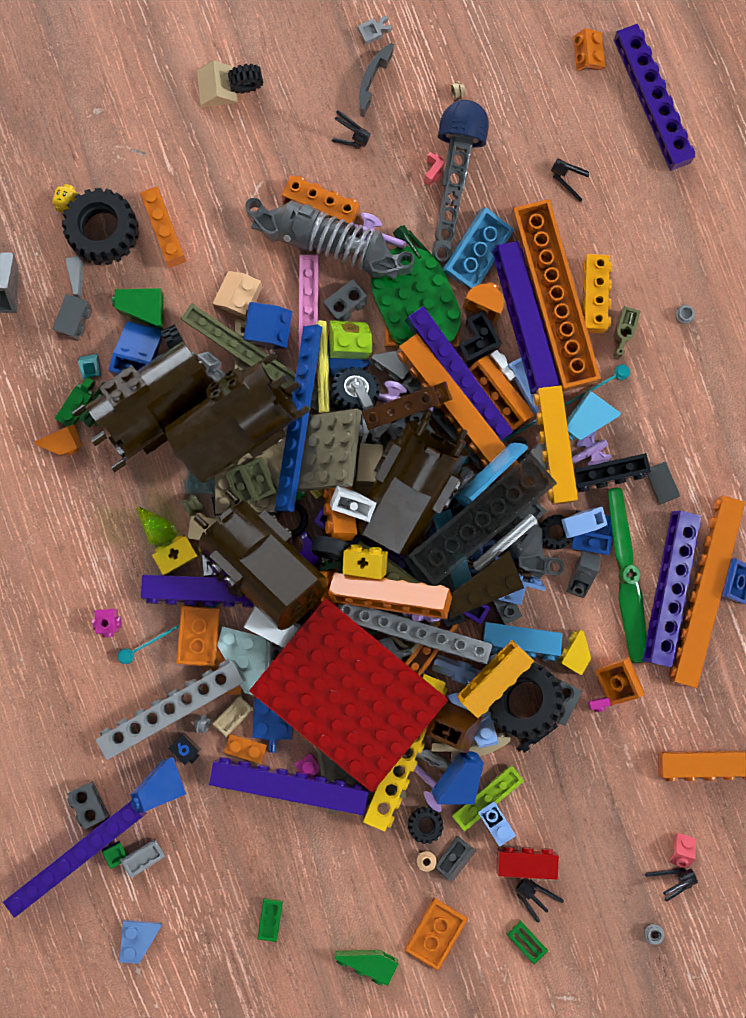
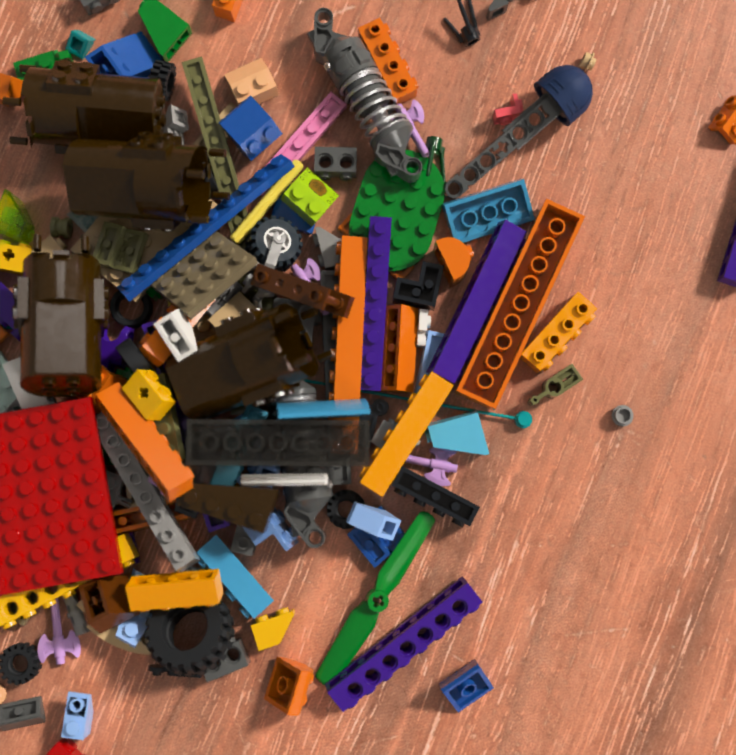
camera: 50 degrees right, 0 degrees up
(457, 670) = (156, 556): light blue piece -> none
(460, 780) = (75, 651): blue slope -> none
(494, 791) = (98, 685): lime plate -> none
(561, 168) = (622, 200): black plant -> none
(584, 574) = (338, 565): dark grey slope -> none
(598, 705) = (253, 688): dark pink plate -> none
(663, 483) = (475, 545): dark grey slope -> none
(707, 591) = (432, 673): orange brick -> none

